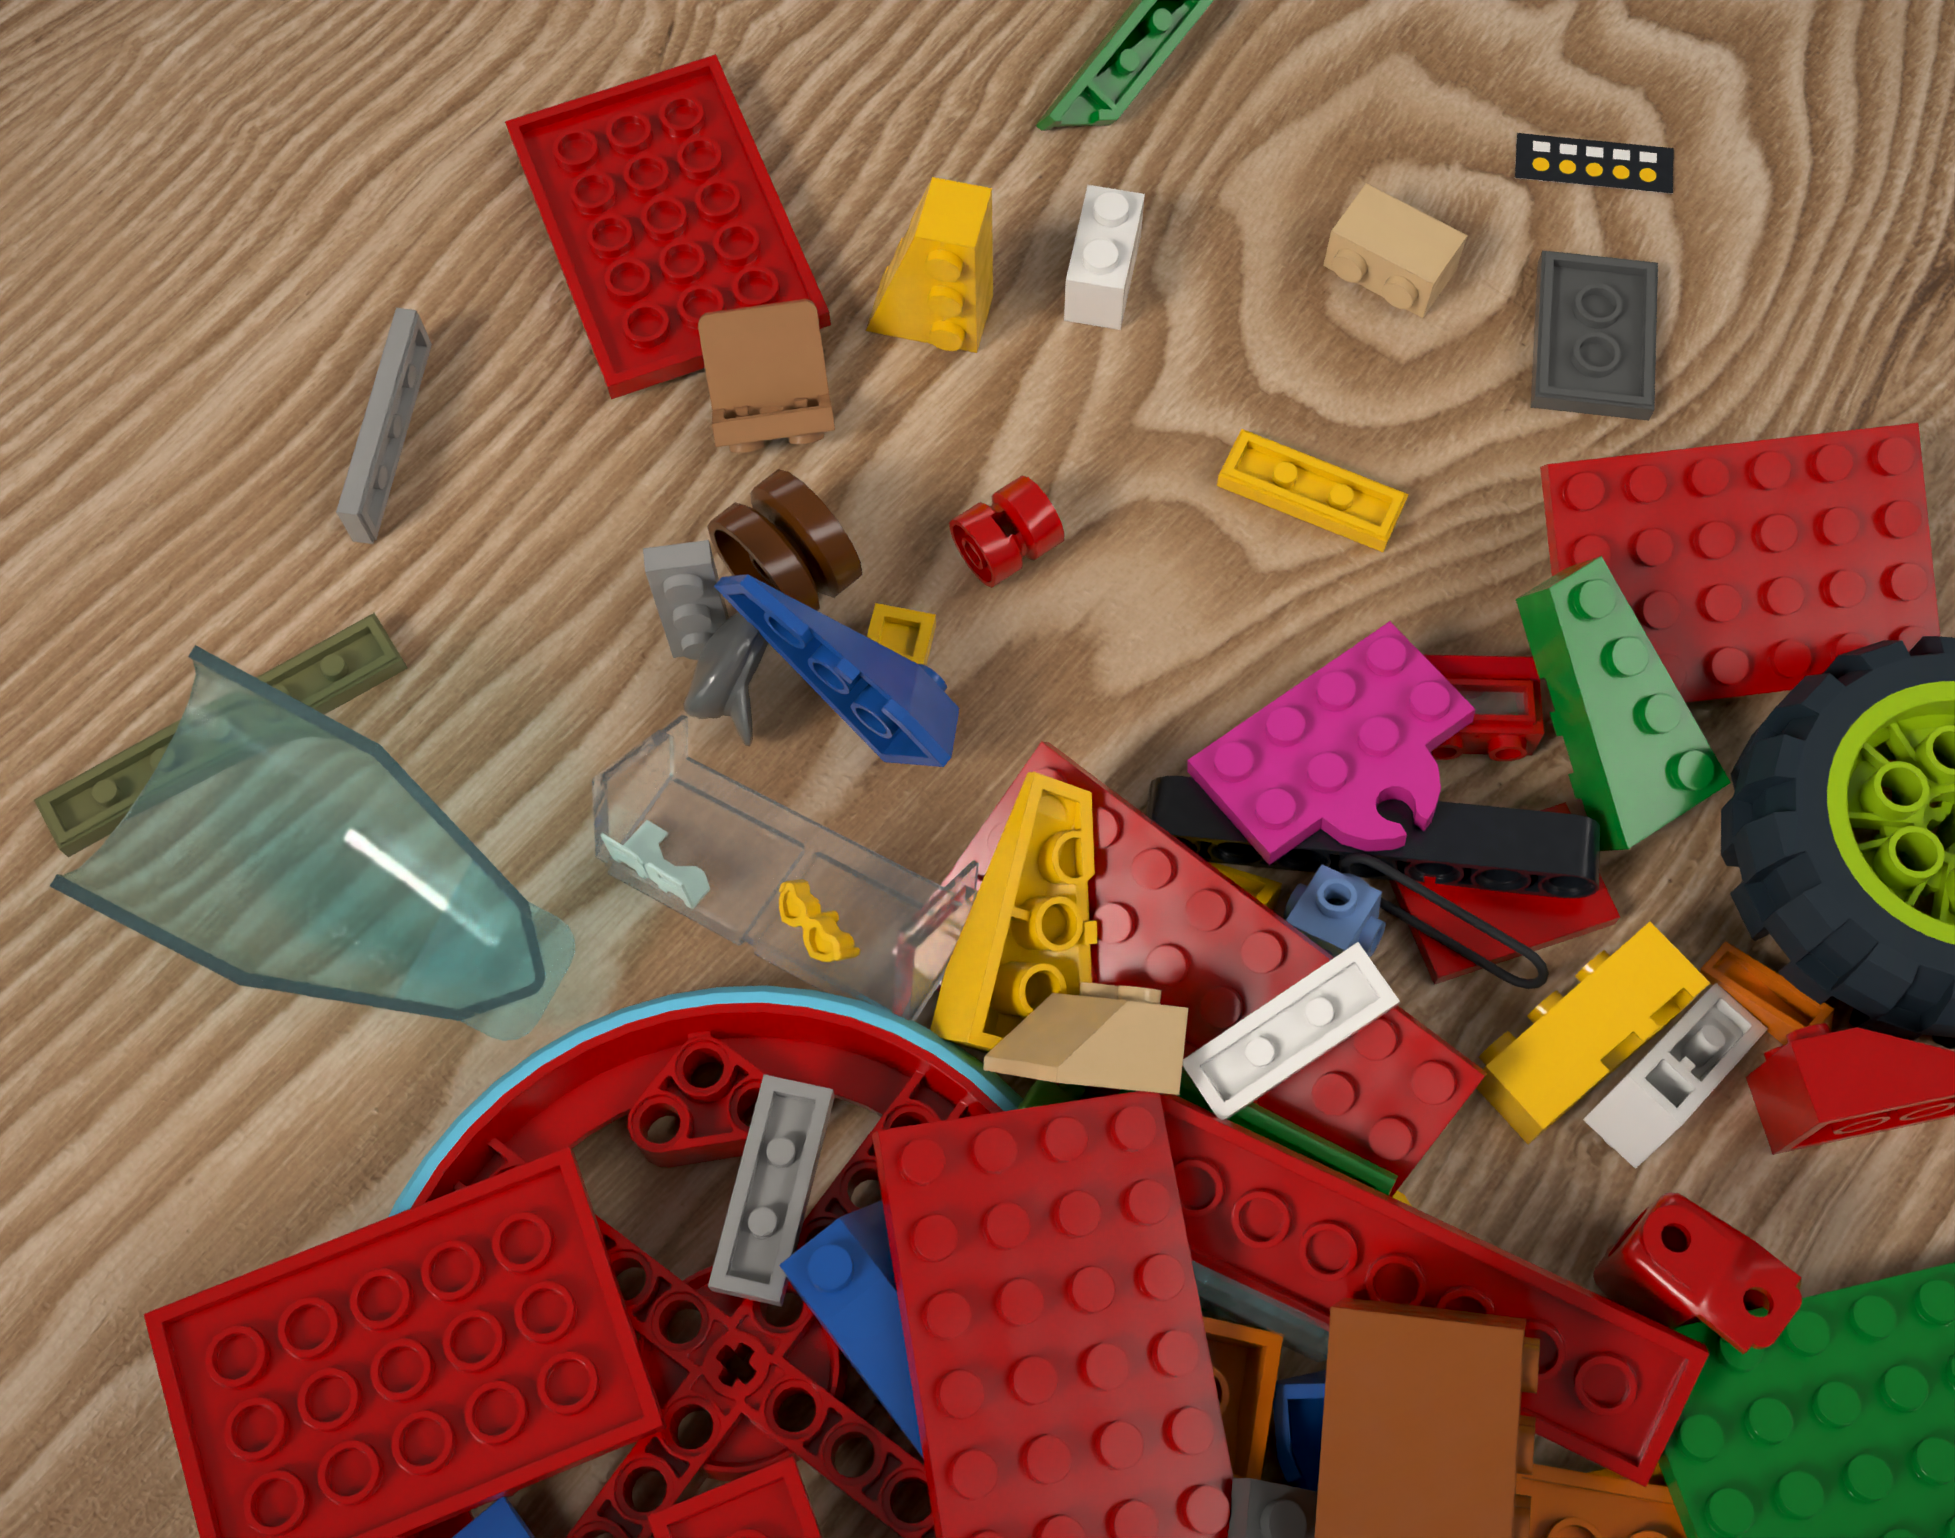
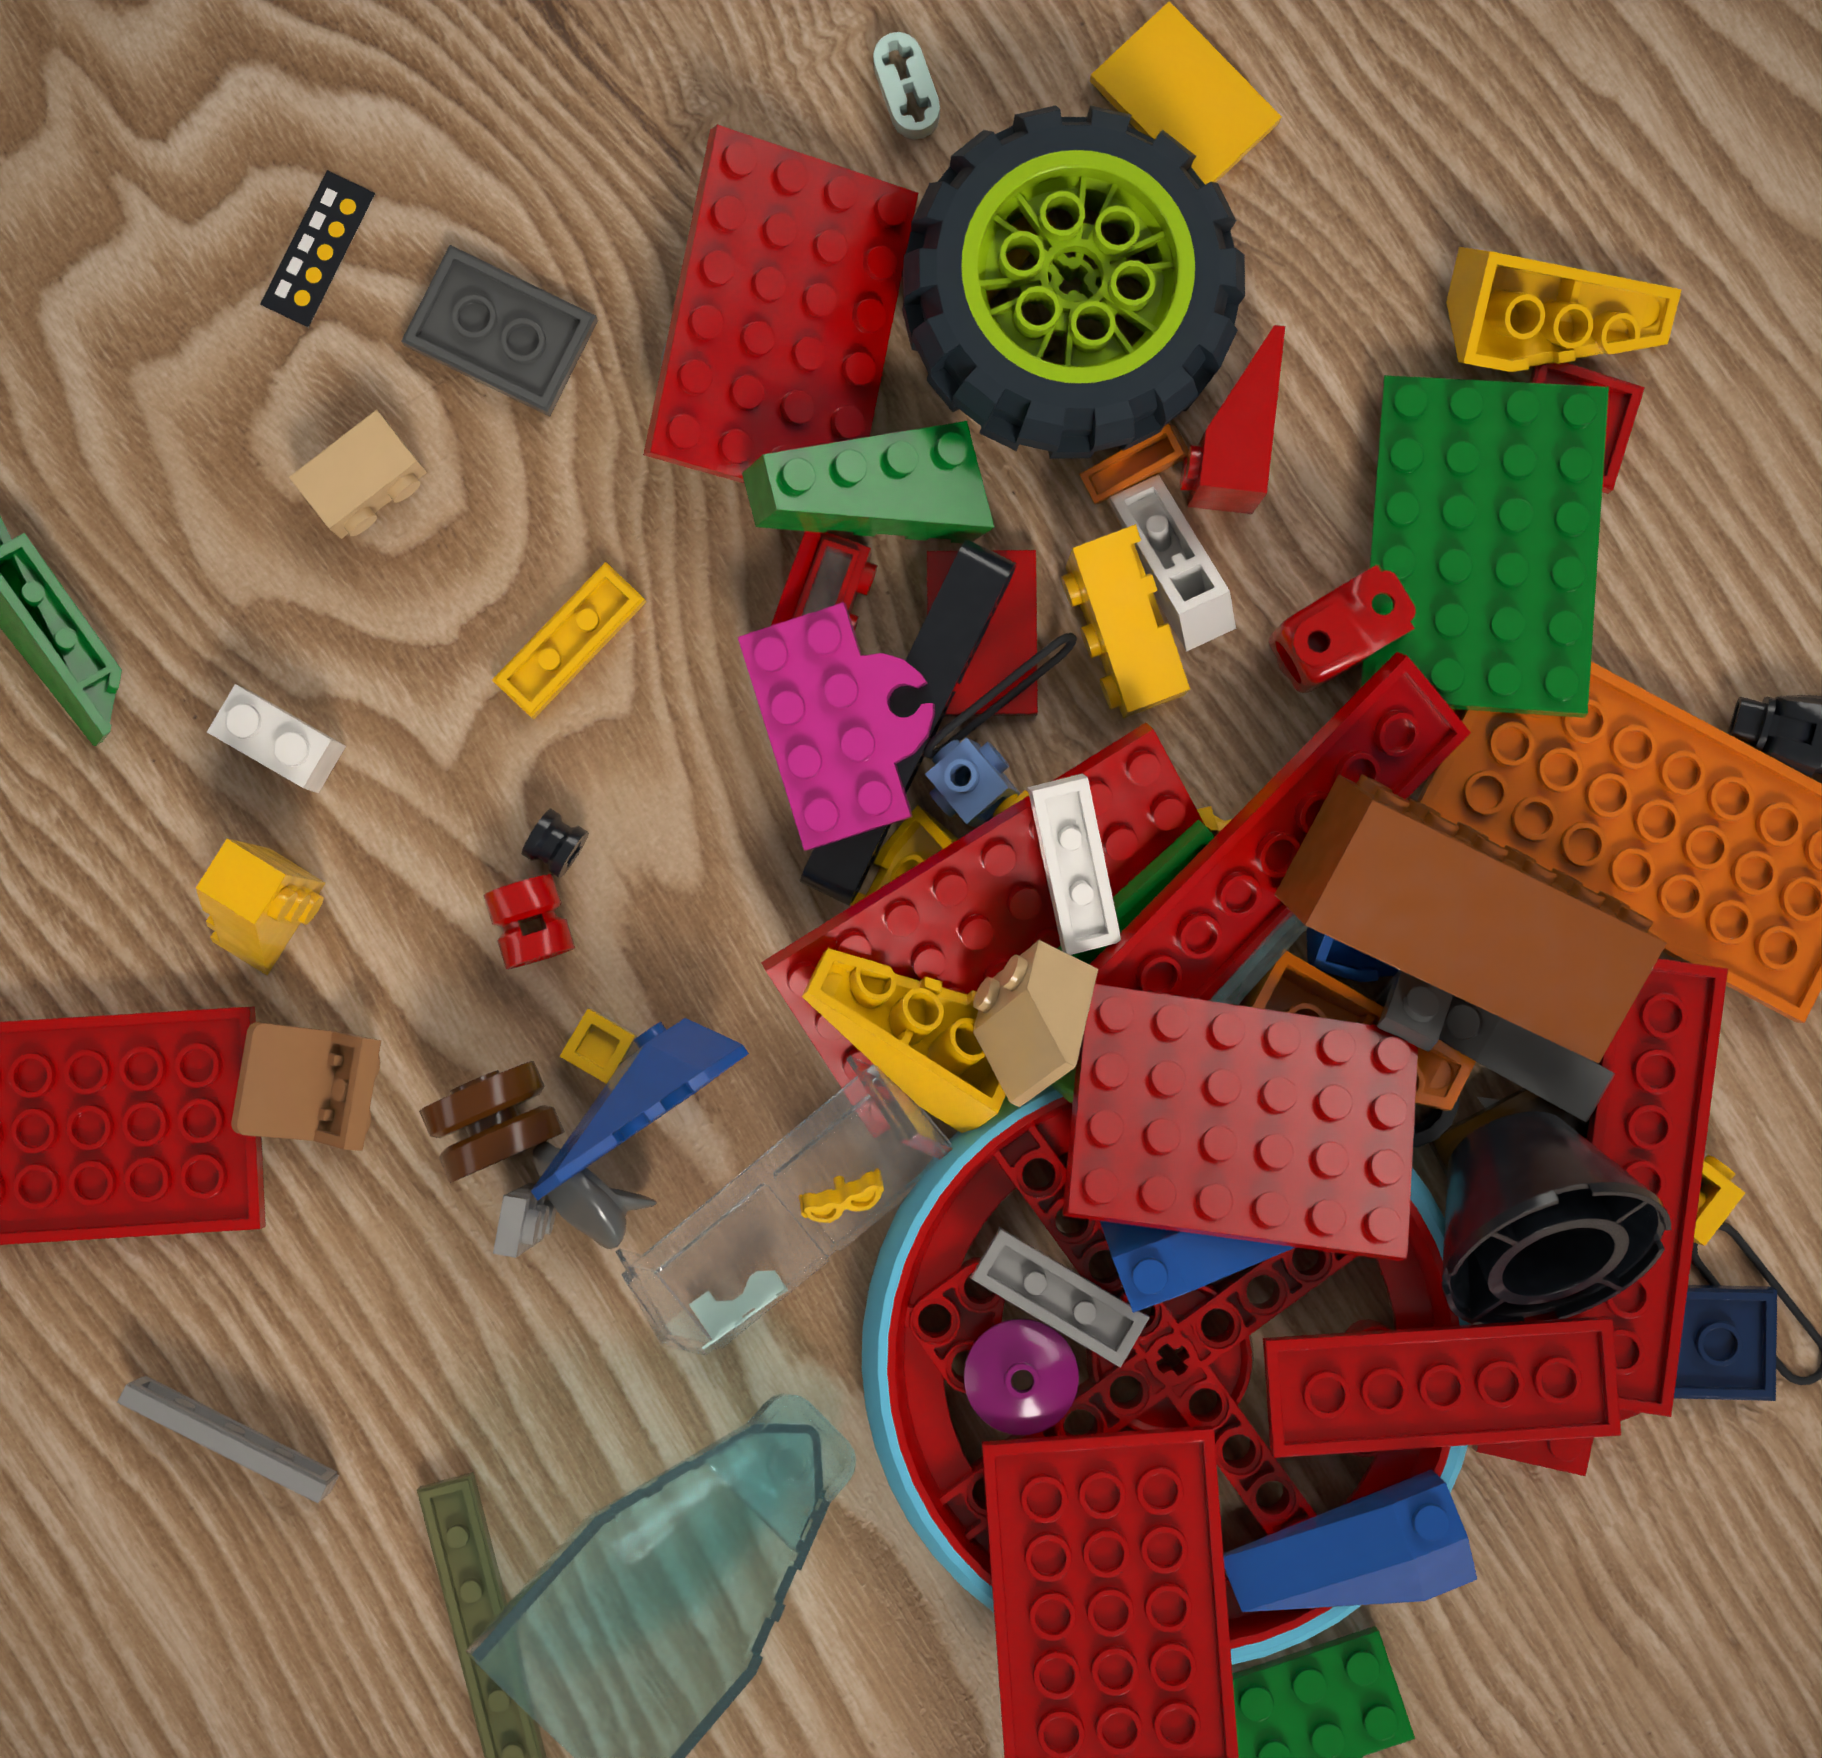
camera: 75 degrees left, 20 degrees up
(684, 1205) = (1015, 1347): none -> magenta dish
(1097, 533) = (555, 843): none -> black wheel

